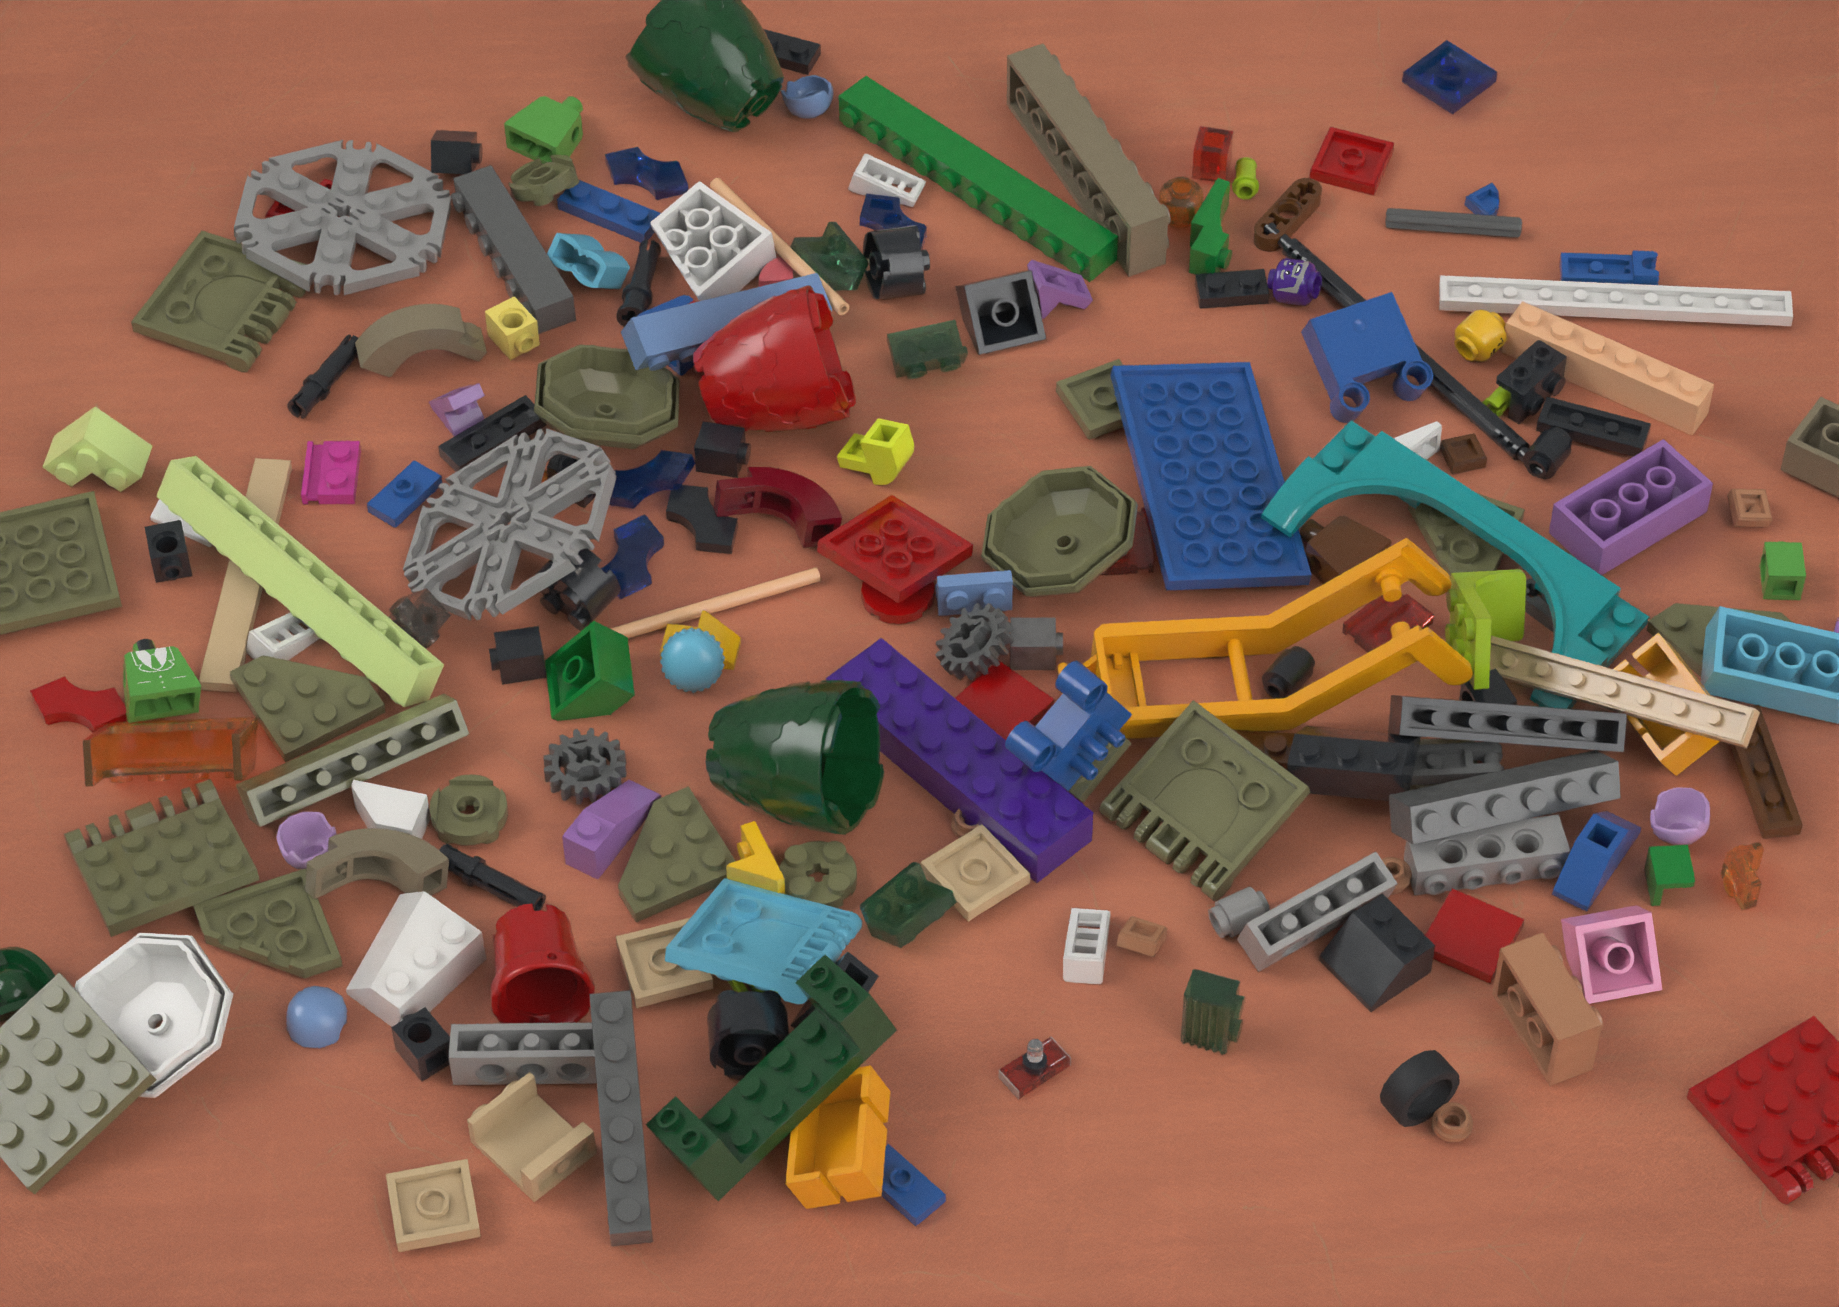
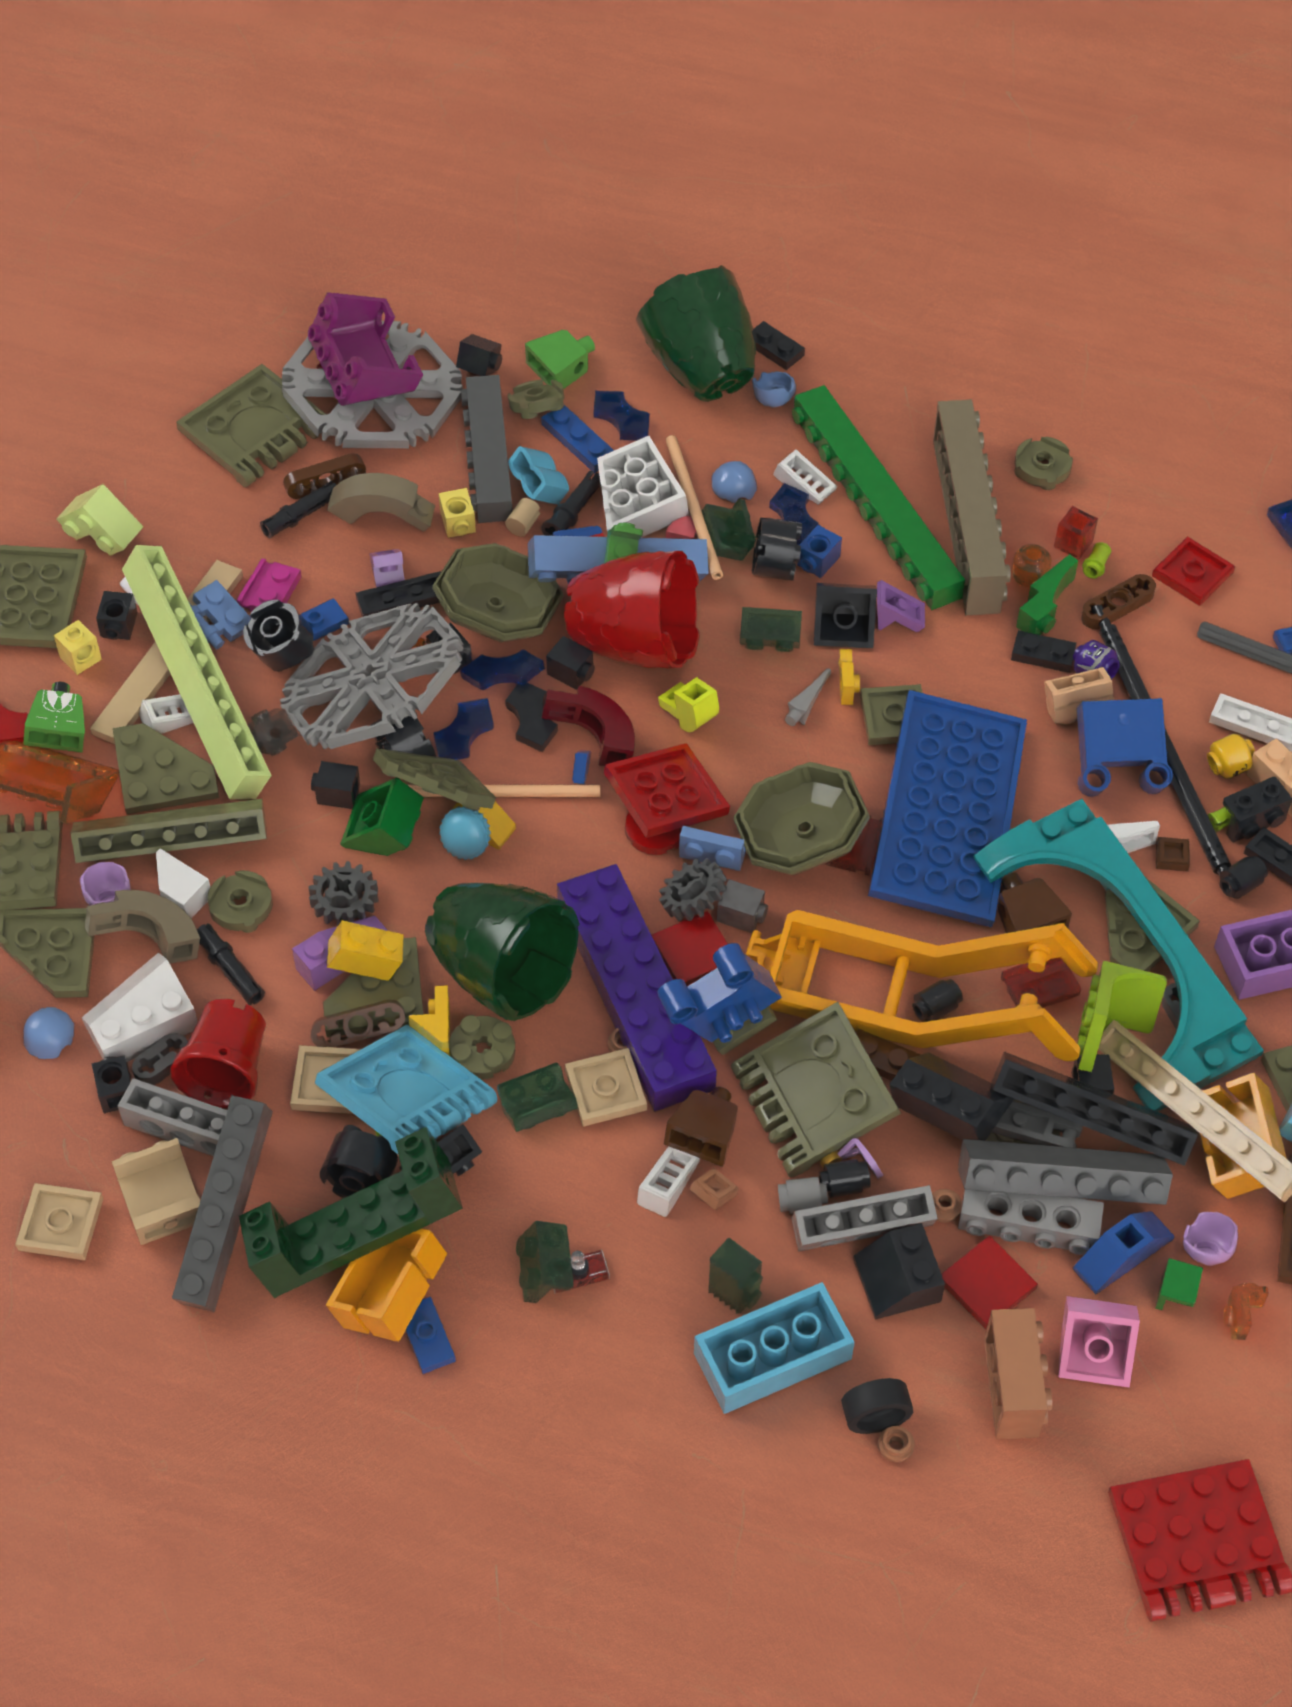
camera: 20 degrees right, 5 degrees up
(140, 598) = (77, 647): none -> light yellow brick
(293, 511) = (222, 610): none -> medium blue plate
(311, 188) = (355, 352): none -> magenta windscreen
(318, 343) = (303, 476): none -> reddish brown beam
(376, 514) = (279, 635): none -> black brick
(456, 1000) = (158, 1058): none -> dark grey beam
(589, 311) = (522, 517): none -> tan piece
(639, 607) = (436, 776): none -> olive plate
(648, 810) = (365, 950): none -> yellow brick
(690, 869) = (332, 1023): none -> reddish brown beam
(731, 298) = (622, 541): none -> bright green bracket
(785, 550) = (581, 766): none -> blue tile
(809, 207) = (734, 481): none -> medium blue hair
(944, 251) = (819, 551): none -> blue brick
(995, 1065) = (544, 1260): none -> clear green bracket
(998, 416) = (802, 704): none -> light grey piece
(1036, 378) = (848, 681): none -> yellow plate
(1104, 876) = (703, 1125): none -> reddish brown torso
(1151, 105) = (1041, 474): none -> olive plate
(1255, 864) = (847, 1152): none -> lavender piece
(1278, 878) = (845, 1177): none -> black brick
(1283, 1069) = (773, 1347): none -> medium azure brick
(1284, 320) = (1067, 693): none -> light nougat brick

